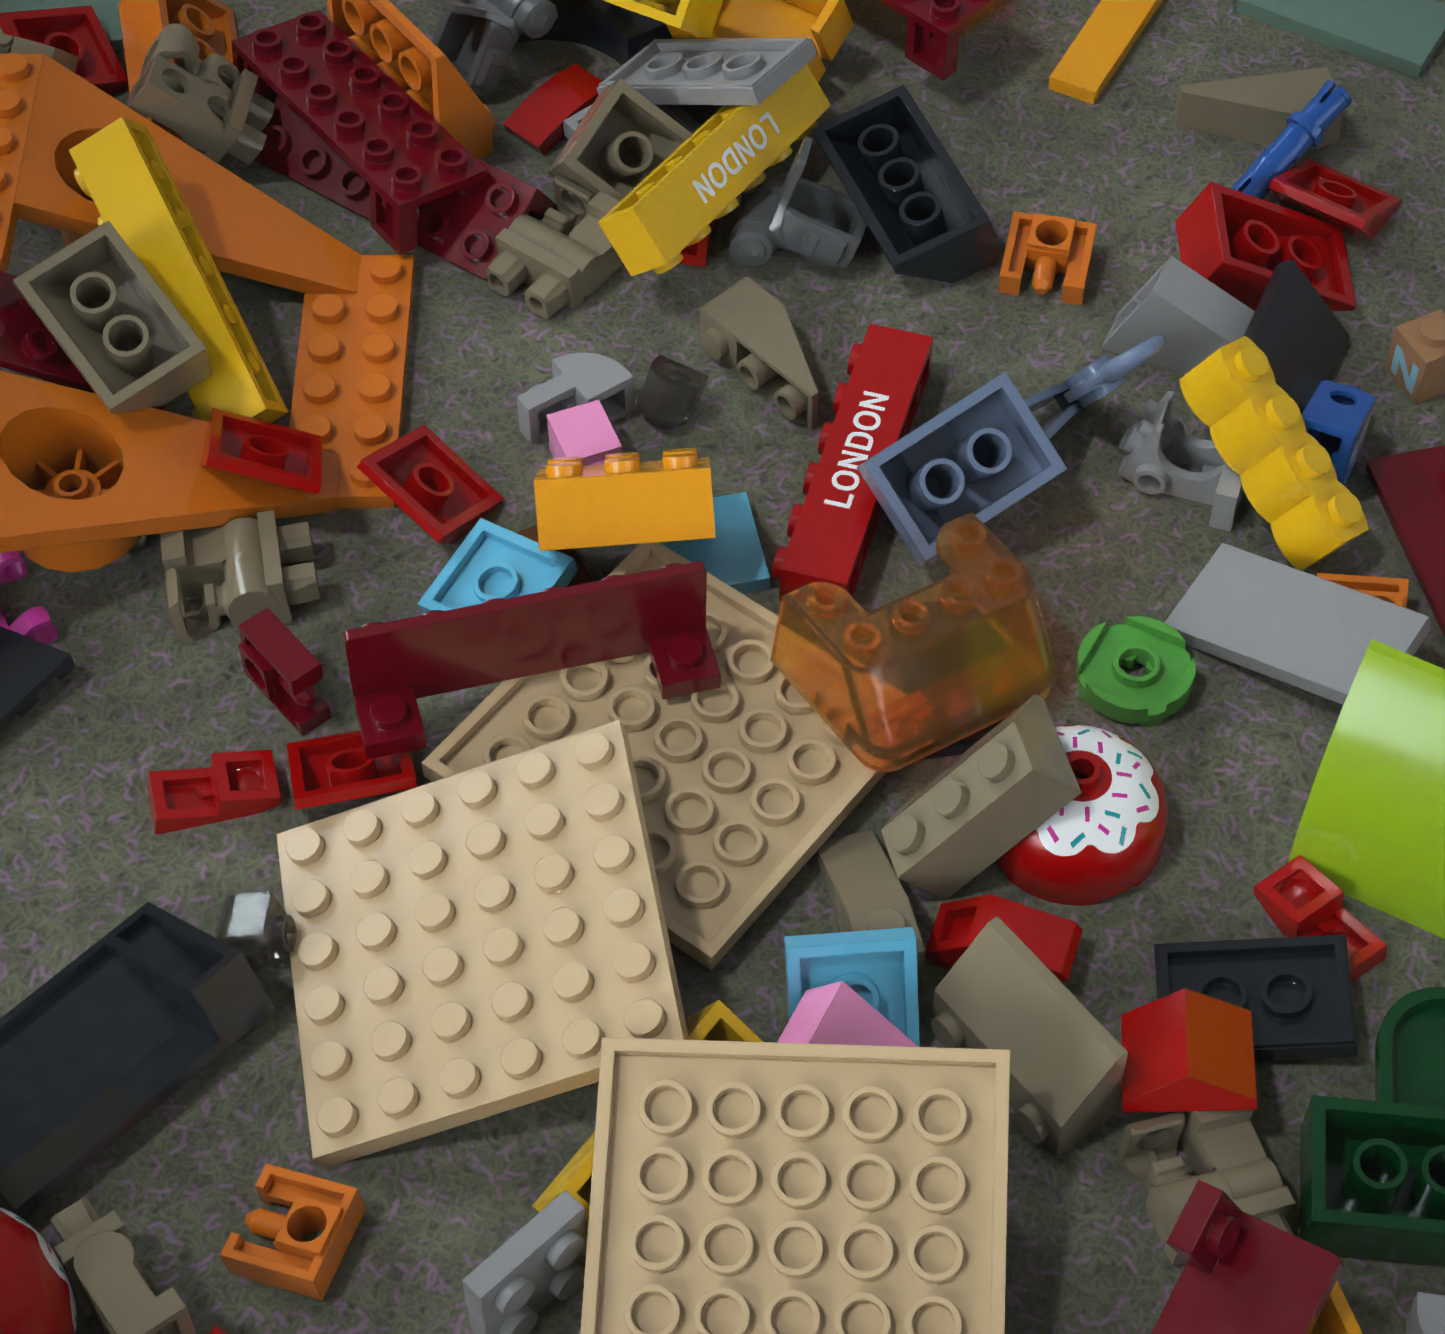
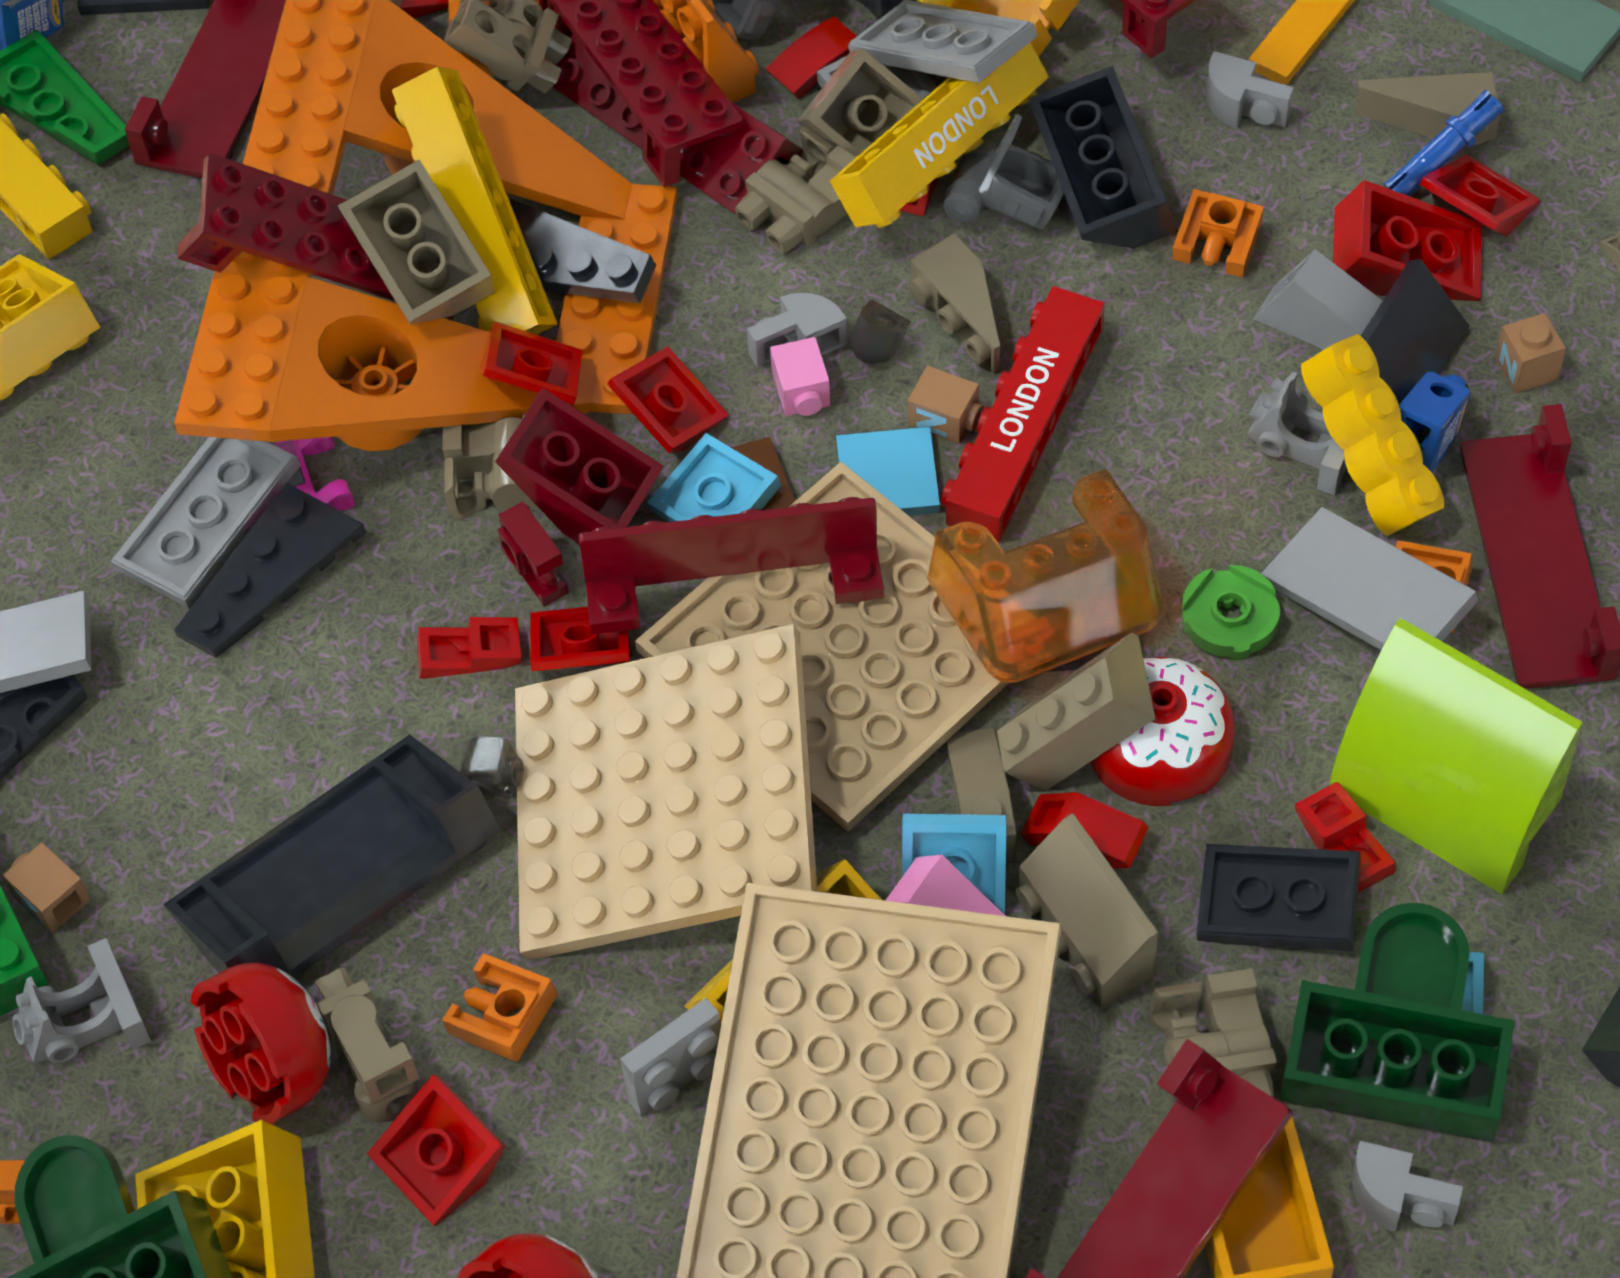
camera: 10 degrees right, 5 degrees up
(313, 338) = (580, 260): none -> wing
(327, 564) = (576, 468): none -> dark red slope
(624, 500) = (823, 432): light orange piece -> none
(761, 464) = (944, 404): none -> medium nougat brick
(985, 451) = (1127, 414): sand blue slope -> none
(1043, 110) = (1237, 93): none -> light grey brick
(1188, 1055) = (1213, 938): red slope -> none

